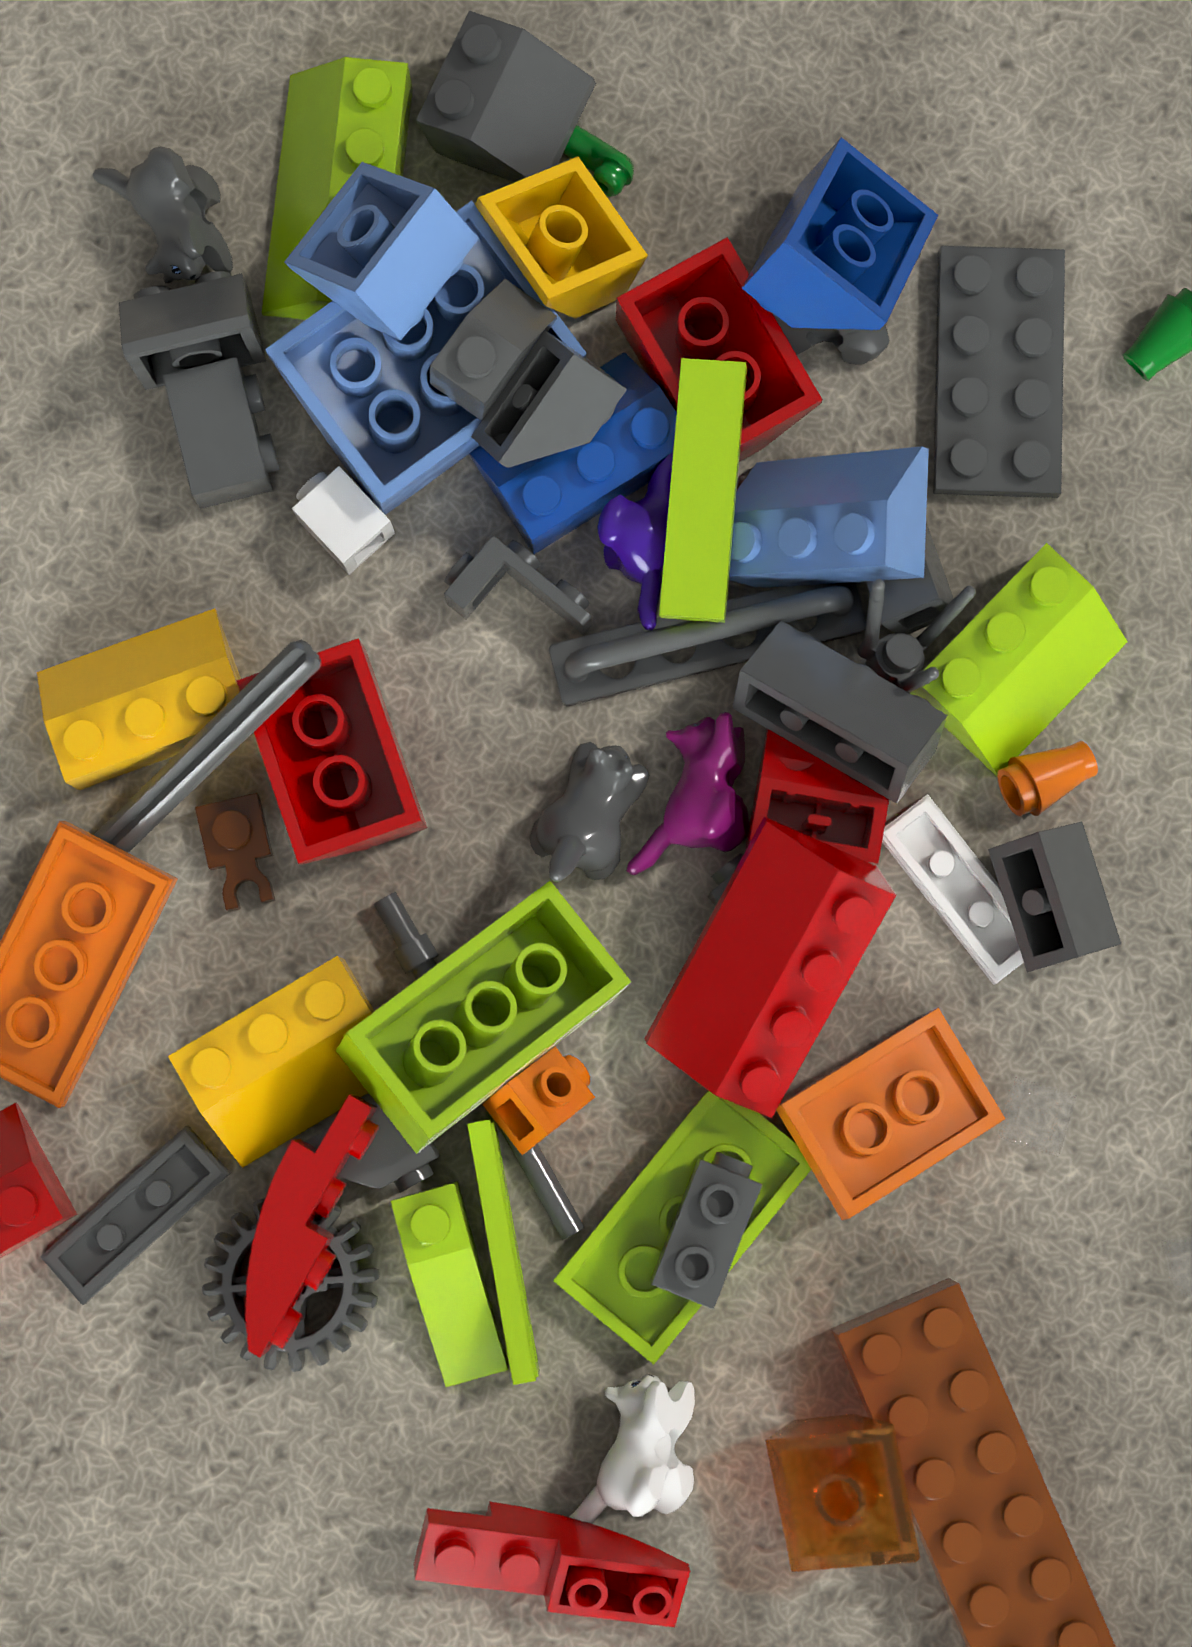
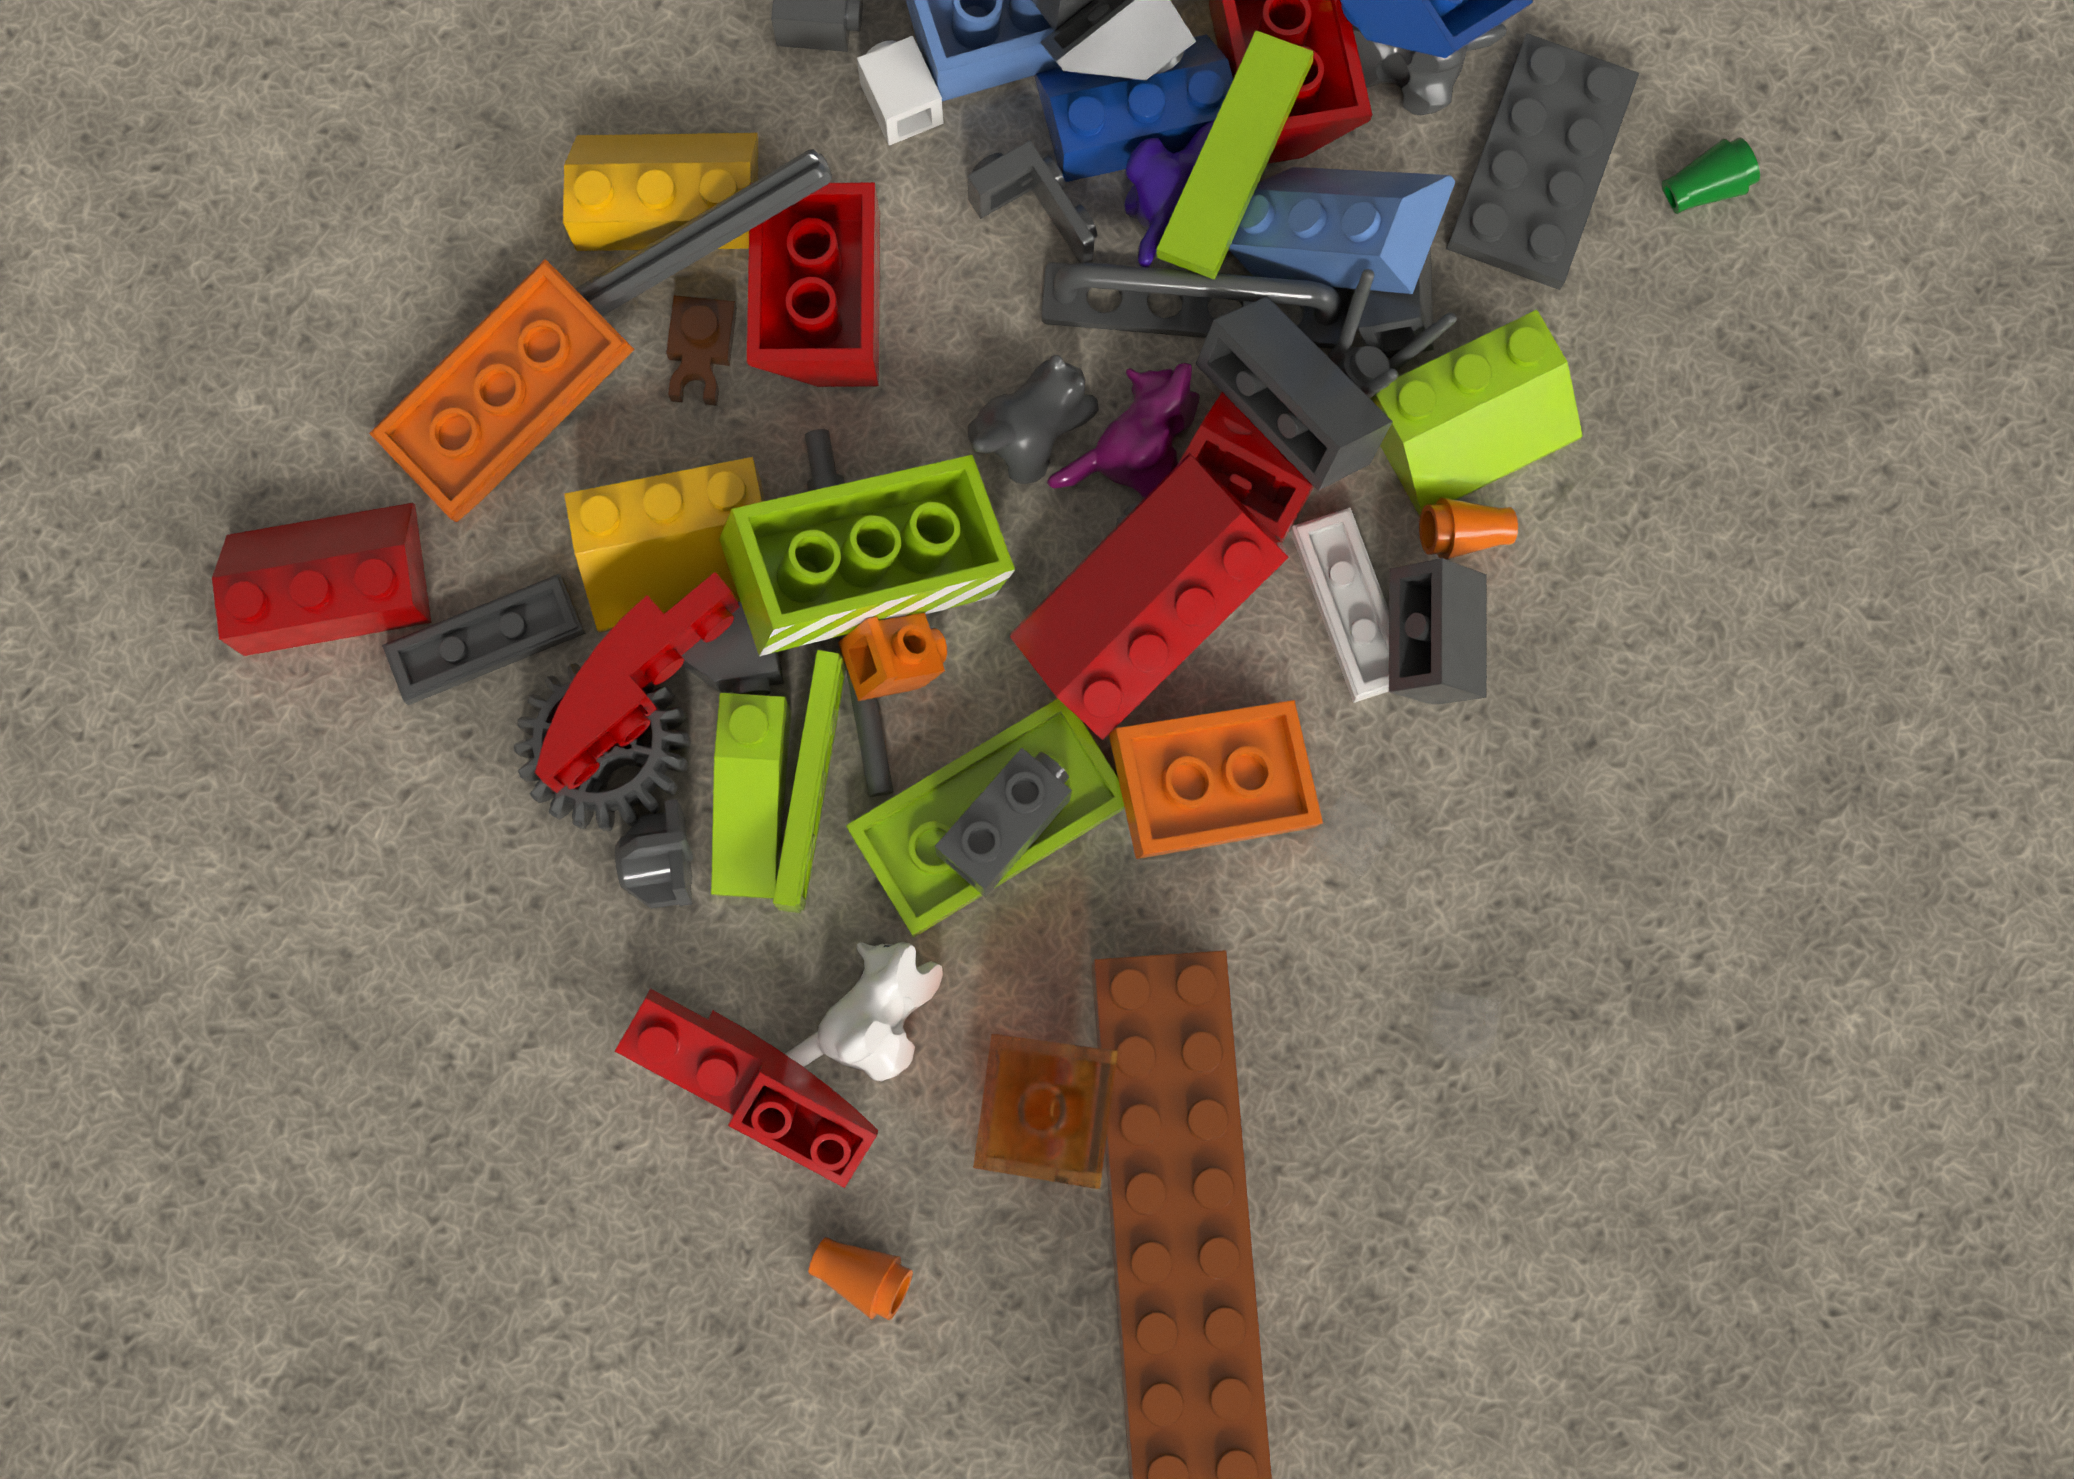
camera: 15 degrees right, 5 degrees down
(383, 1375) = (656, 859): none -> dark grey piece

